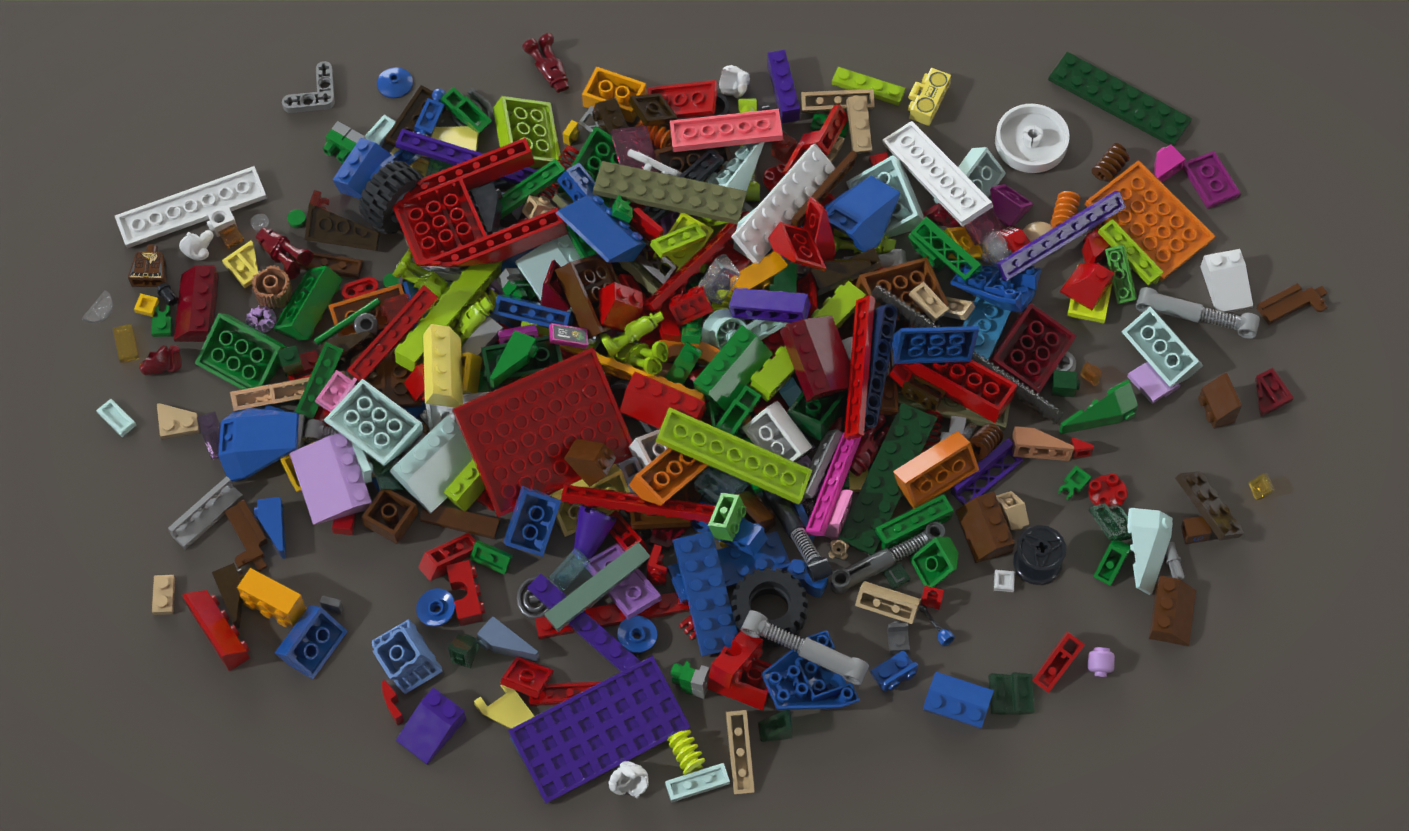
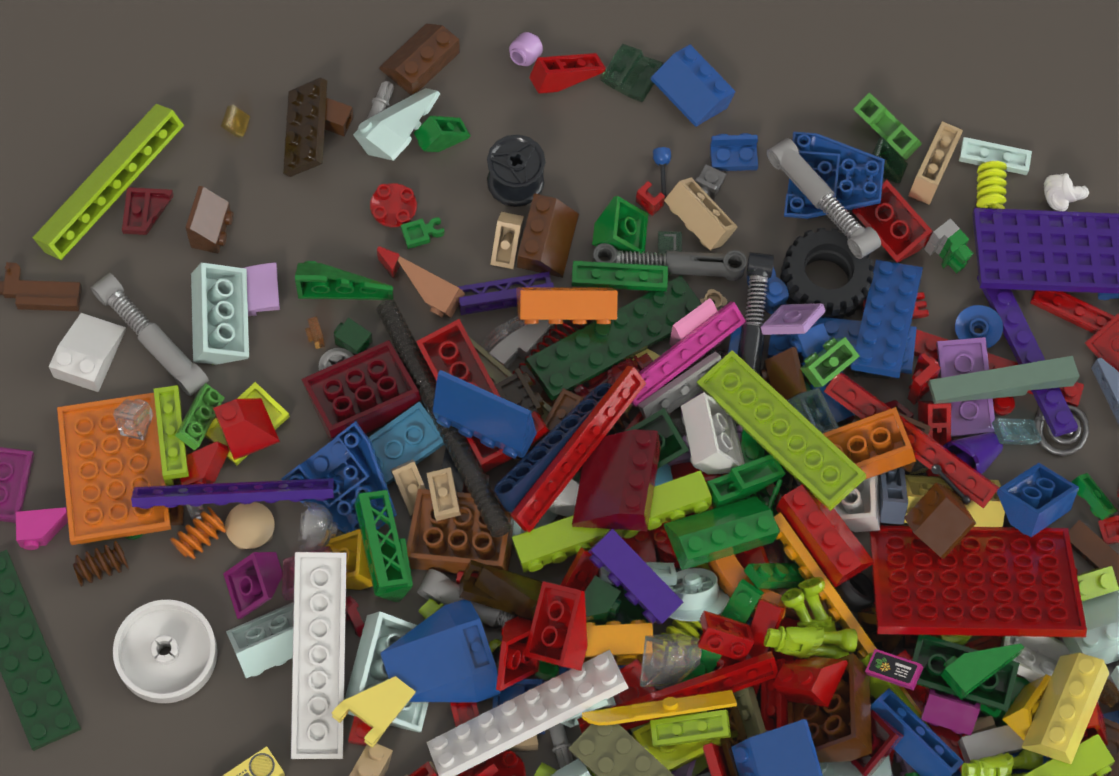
camera: 155 degrees left, 5 degrees up
(611, 491) = (937, 469): none -> black hinge
(703, 237) = (656, 709): none -> yellow piece
(729, 669) = (913, 215): red arch -> none
(772, 547) = (793, 319): none -> lavender tile
(778, 751) = (887, 126): none -> bright green arch
(827, 186) = (452, 721): reddish brown tile -> none
(880, 161) = (376, 706): none -> light yellow flag
(986, 440) = (492, 317): reddish brown piece -> none
(1004, 580) = (563, 179): white tile -> none
(1015, 238) = (284, 531): red slope -> none
(1112, 521) = (416, 164): clear green slope -> none
(1160, 243) = (133, 418): none -> clear slope
(1308, 394) = (108, 181): none -> lime brick

